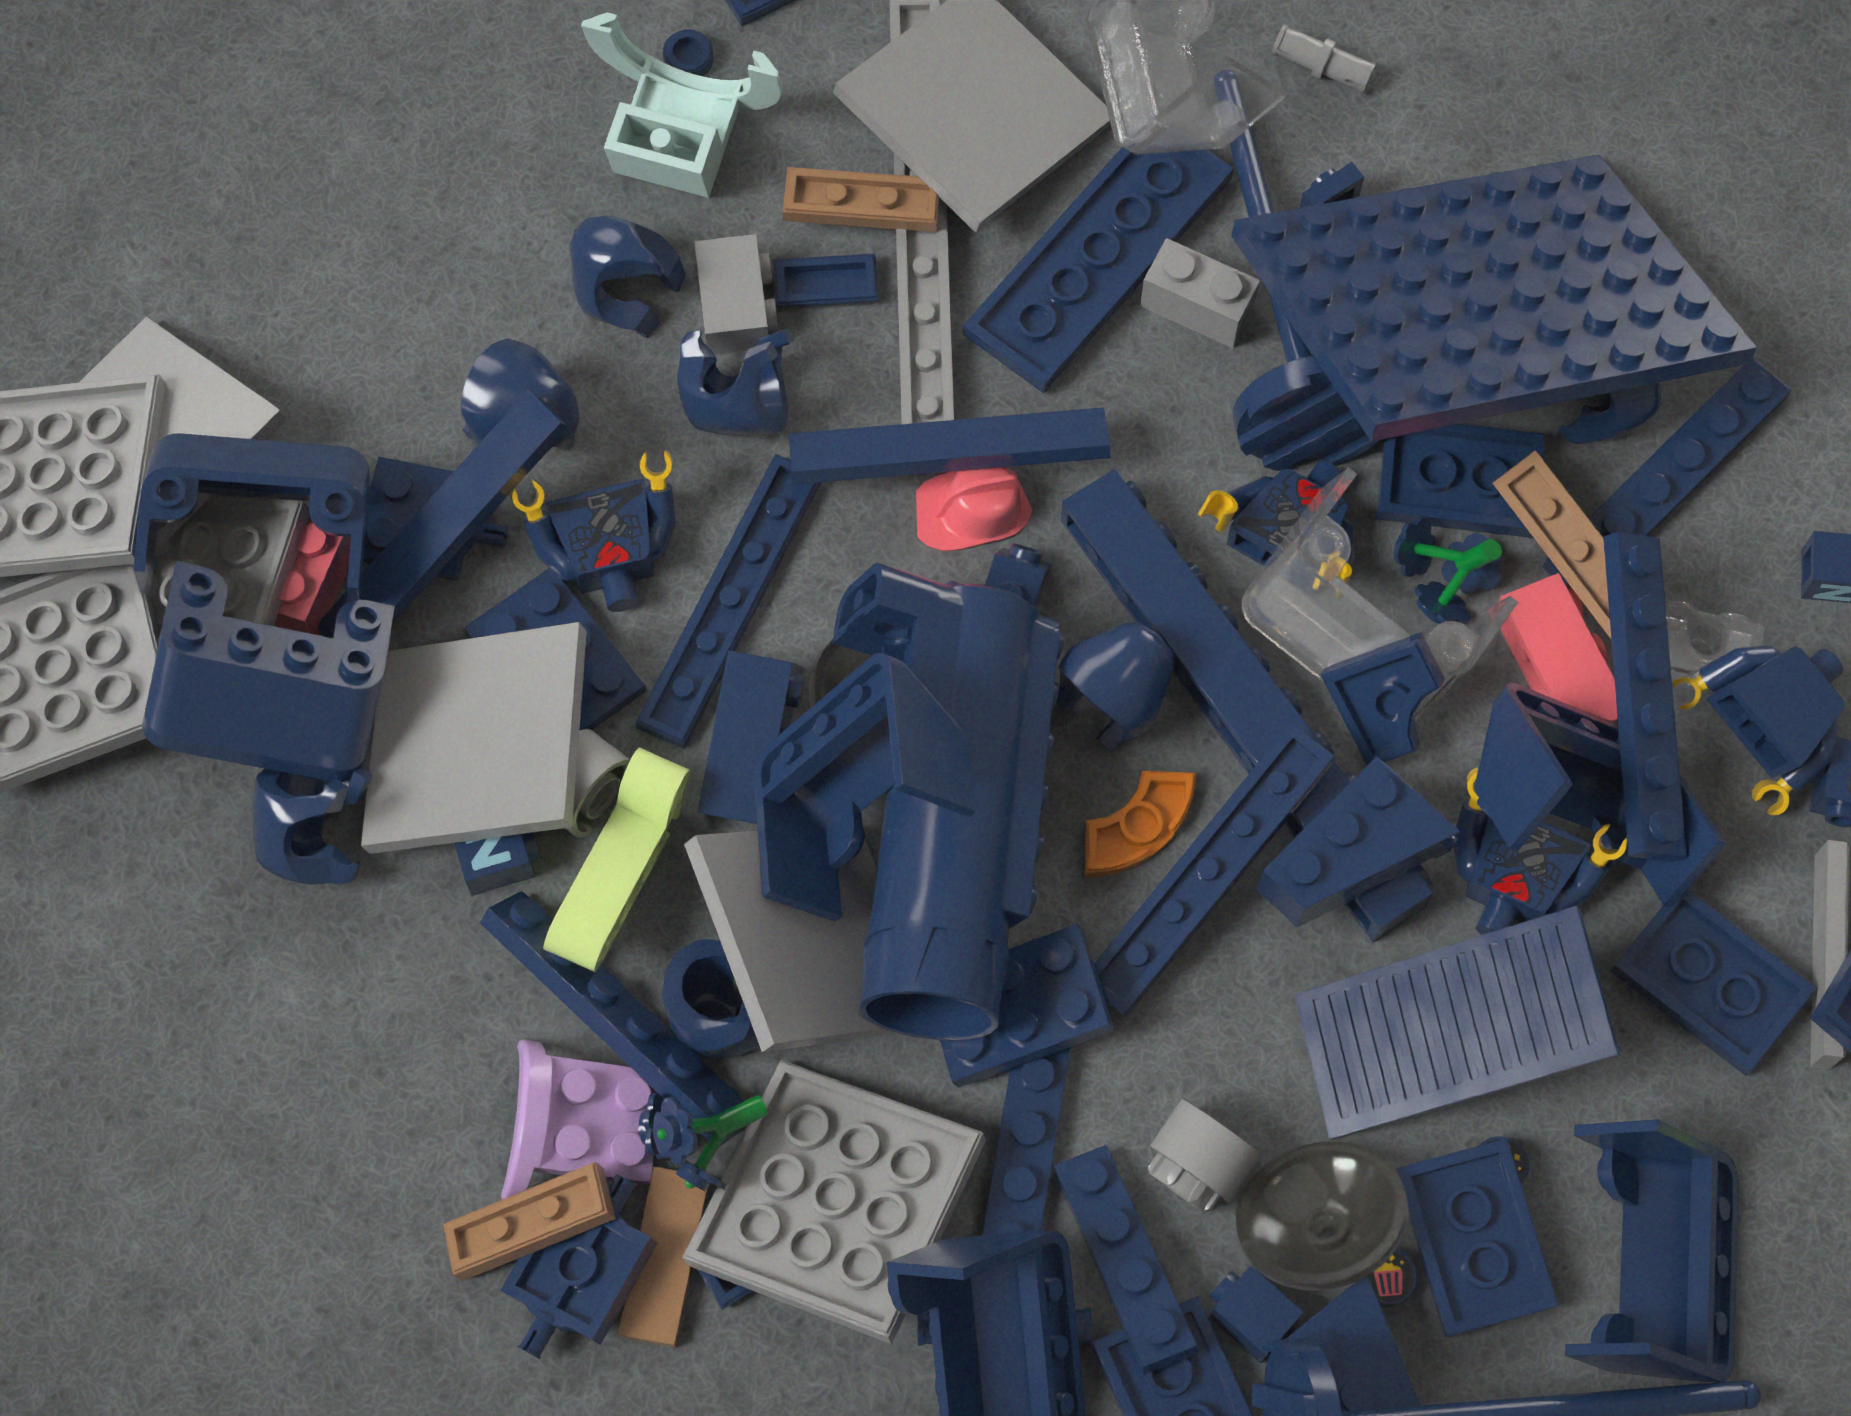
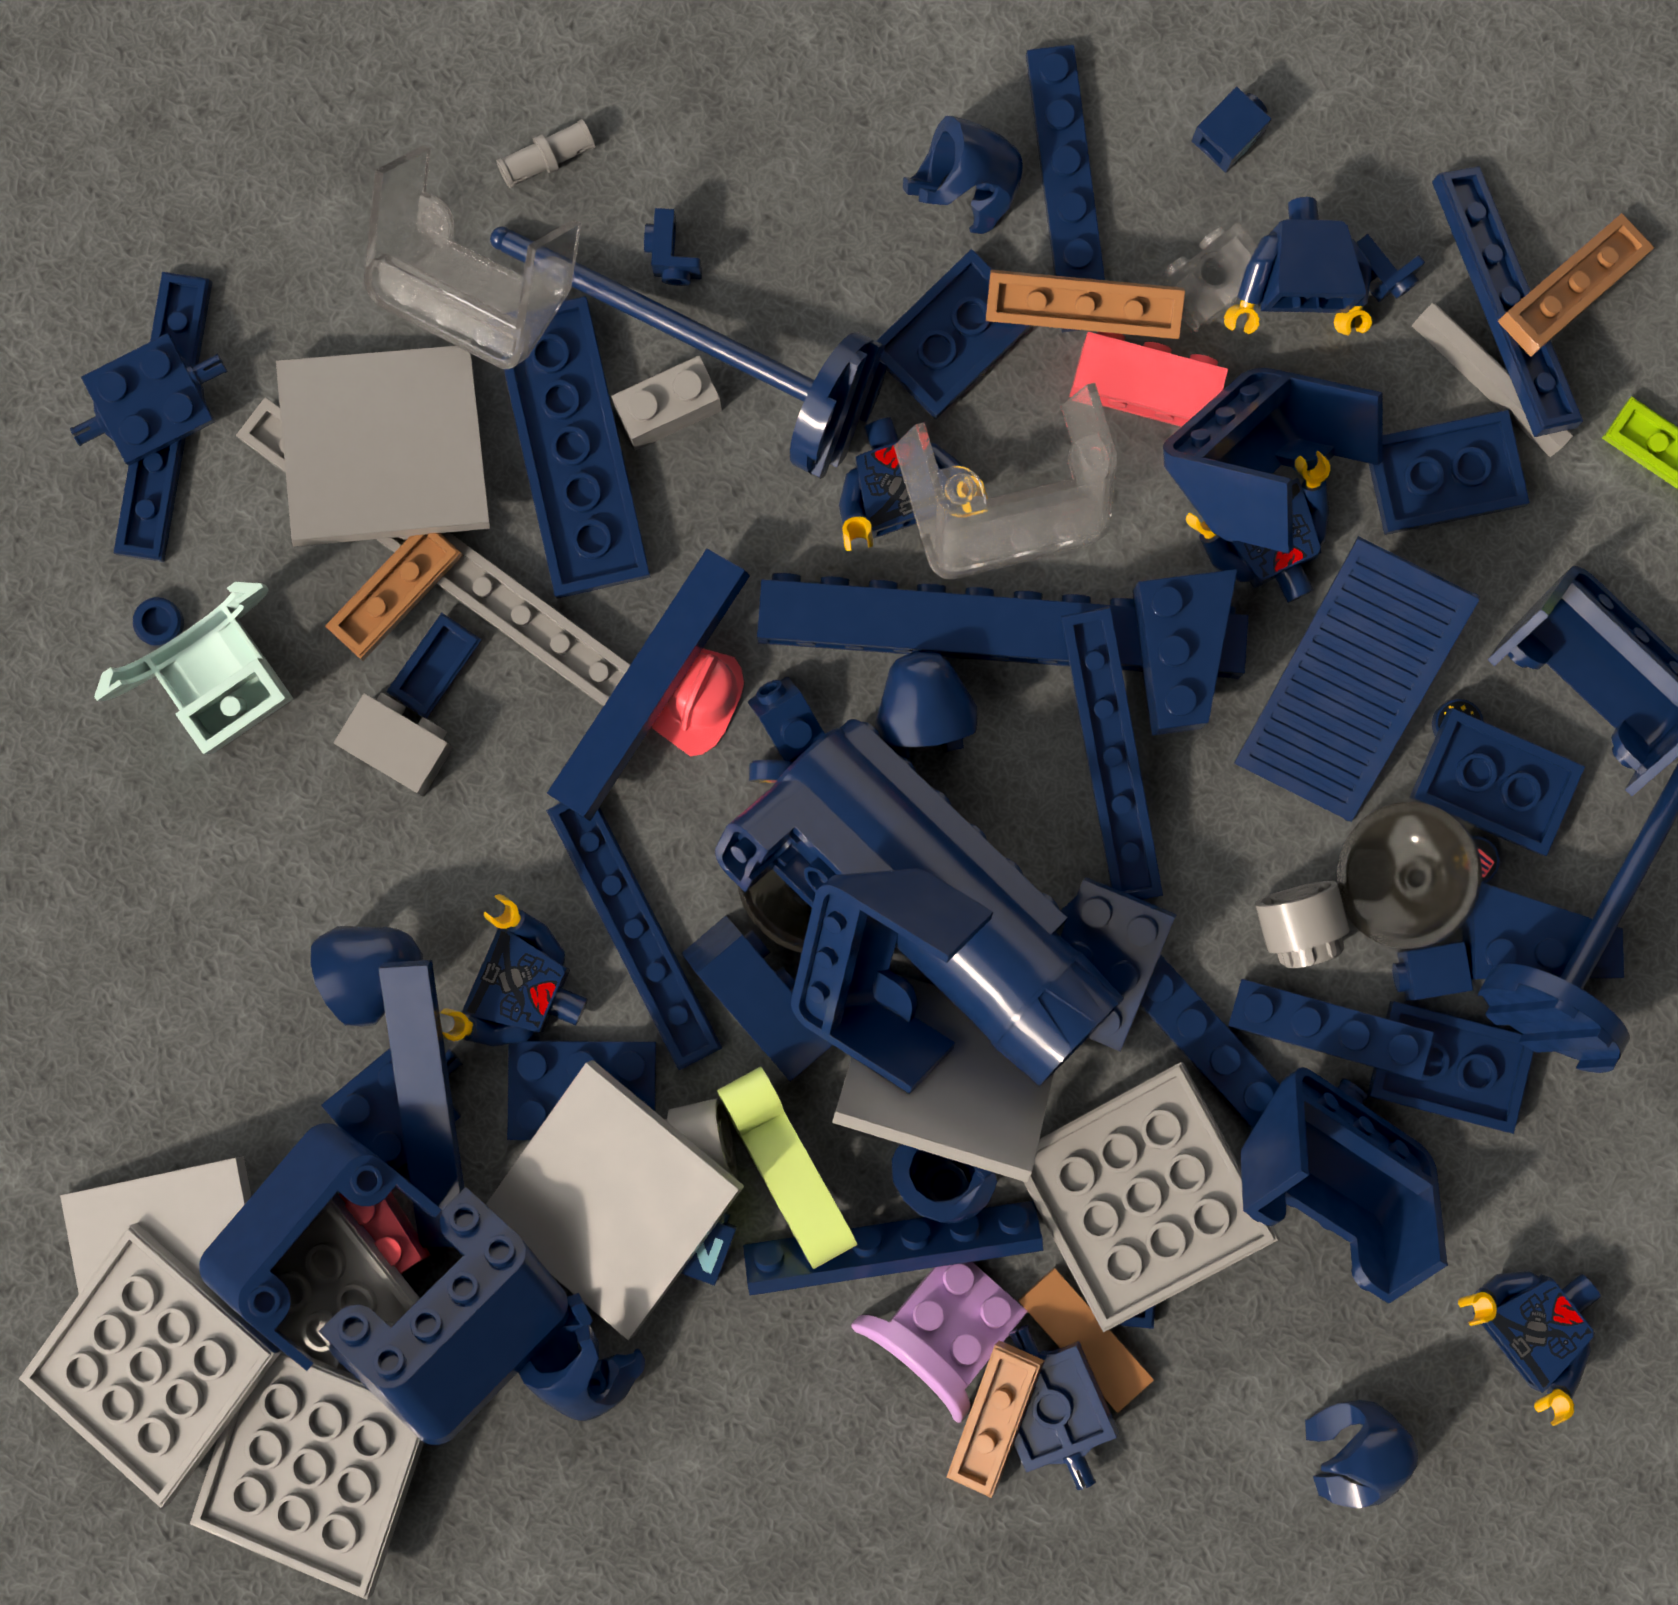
camera: 55 degrees left, 15 degrees up
(616, 249) = (298, 814): dark blue piece -> none
(672, 1133) = (1022, 1279): dark blue plant -> none
(735, 404) = (485, 806): dark blue piece -> none
(1141, 826) = (1033, 771): orange tile -> none
(1382, 693) = (1083, 530): dark blue tile -> none
(1466, 567) = (1024, 383): dark blue plant -> none
(1489, 295) = (854, 208): dark blue plate -> none
(1644, 697) = (1233, 355): dark blue plate -> none

